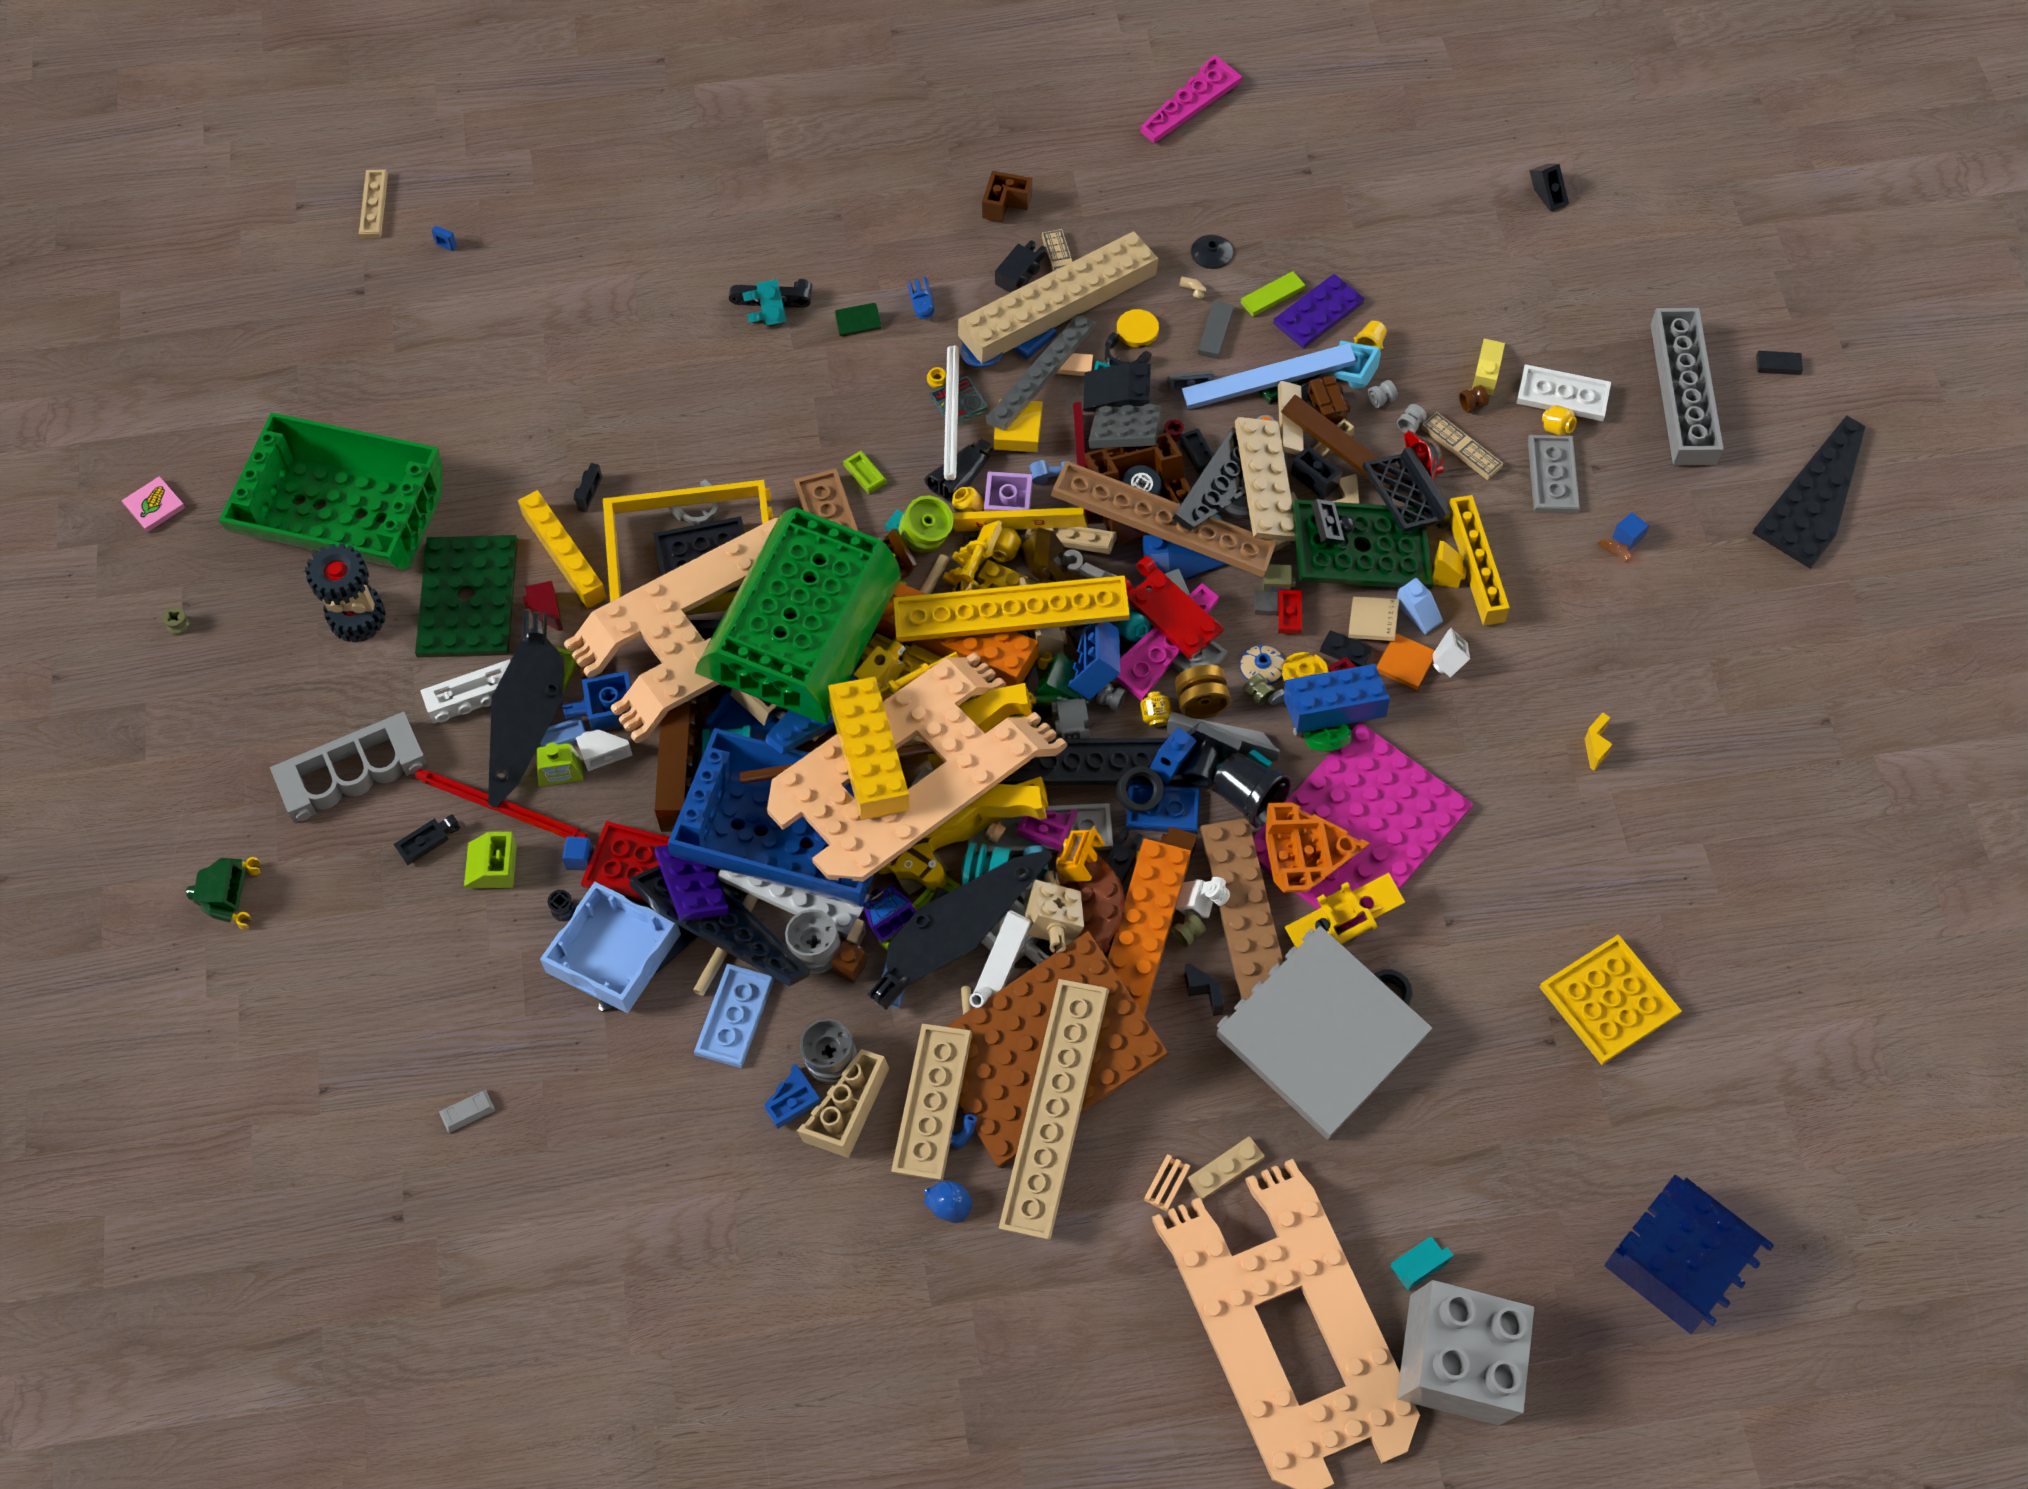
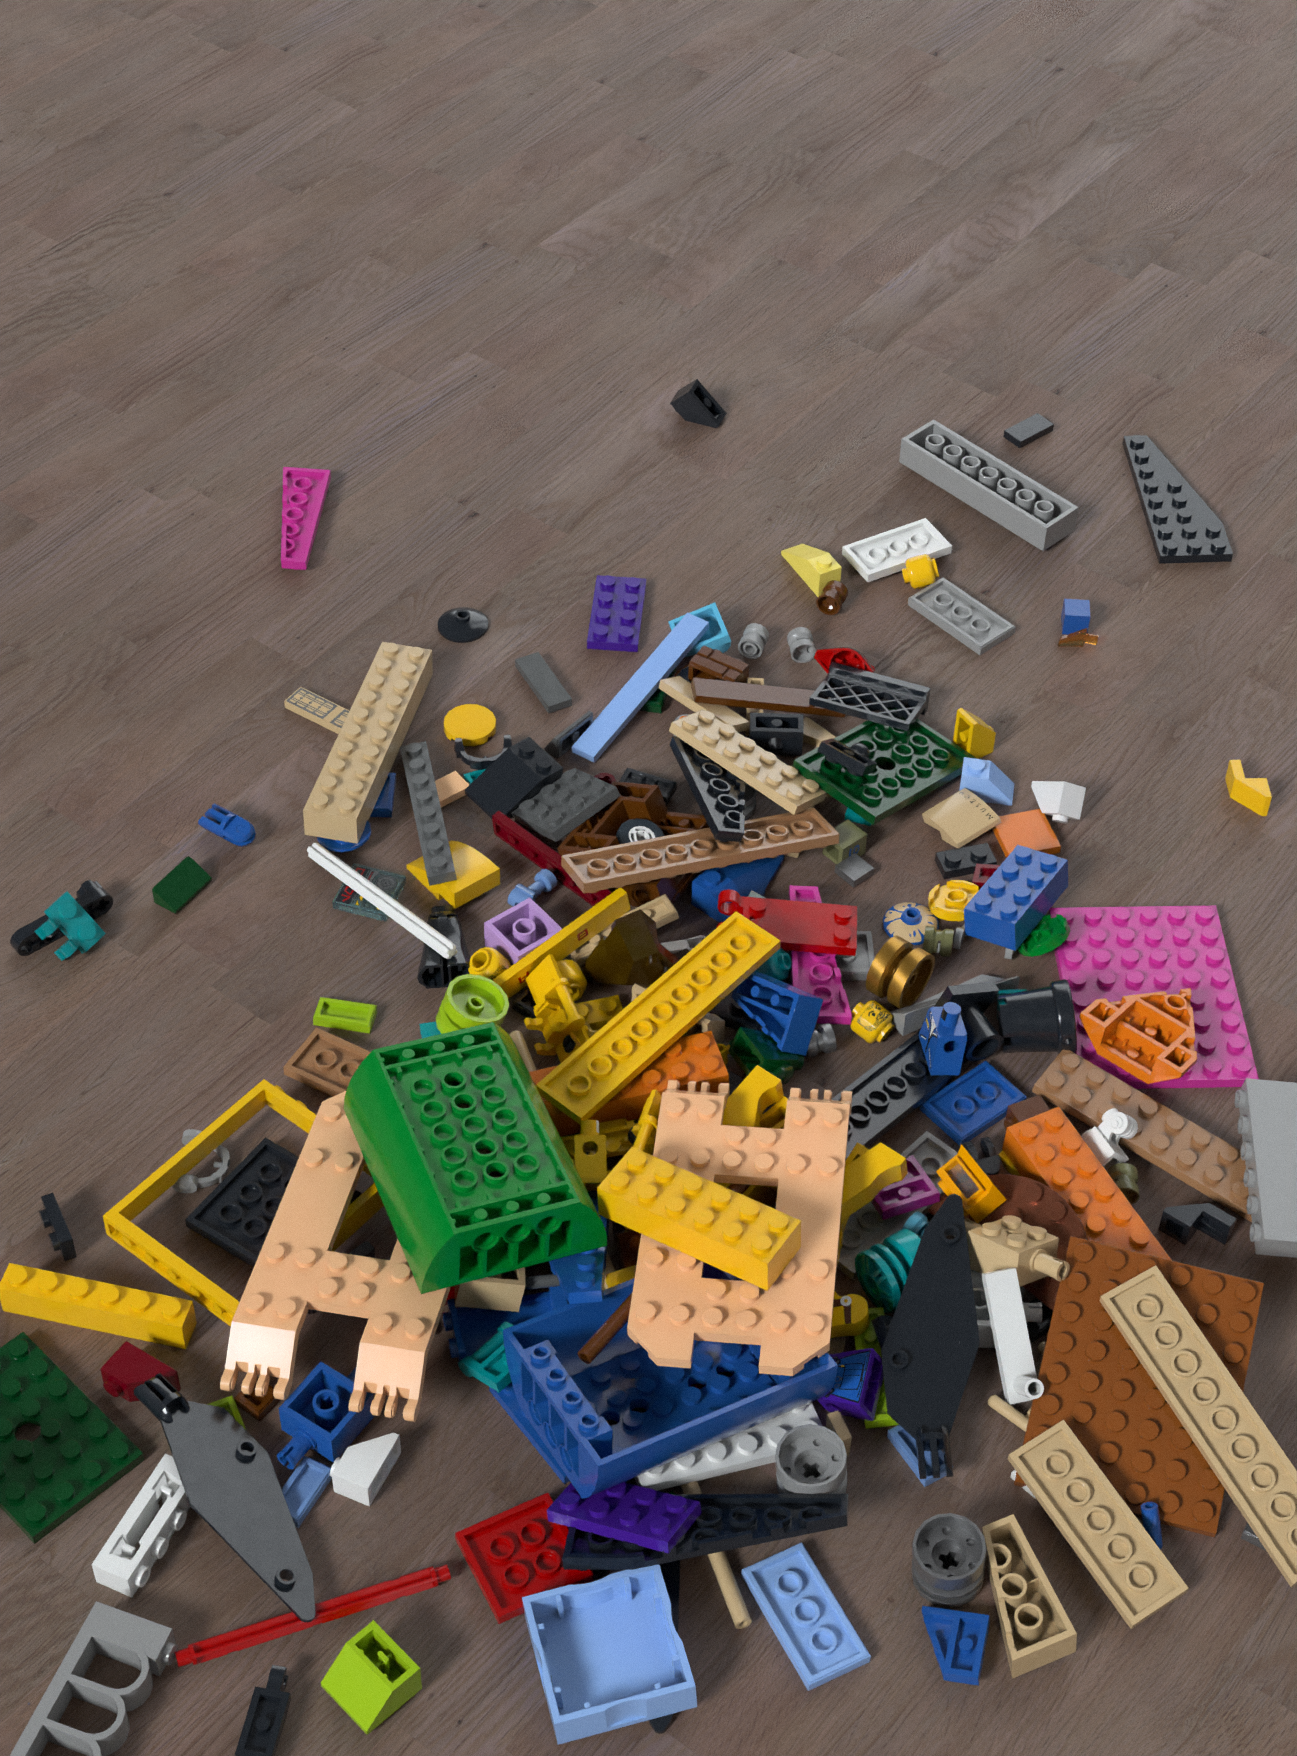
camera: 45 degrees left, 15 degrees down
(558, 764) = (341, 1517): lime torso -> none
(566, 907) = (502, 1667): black wheel -> none
(577, 853) = (461, 1591): blue piece -> none
(676, 761) = (477, 1418): reddish brown brick -> none
(849, 961) = (864, 1464): reddish brown brick -> none
(936, 377) = (324, 884): yellow plate -> none
(948, 1201) = (1211, 1606): blue hair -> none
(995, 832) = (863, 1231): light nougat plate -> none
(1005, 191) = (213, 685): reddish brown brick -> none
(1019, 266) = (298, 742): black hinge -> none
(1070, 719) = (816, 1071): dark grey brick -> none
(1157, 784) = (955, 1079): black tyre -> none
(1193, 284) = (482, 658): tan arm -> none
(1272, 294) = (560, 624): lime tile -> none
(1289, 612) = (886, 862): red plate -> none
(1345, 906) = (1227, 1062): yellow piece -> none
(1372, 335) = (690, 599): yellow piece -> none
(1462, 446) = (866, 640): tan tile -> none
(1479, 561) = (1011, 722): yellow brick -> none

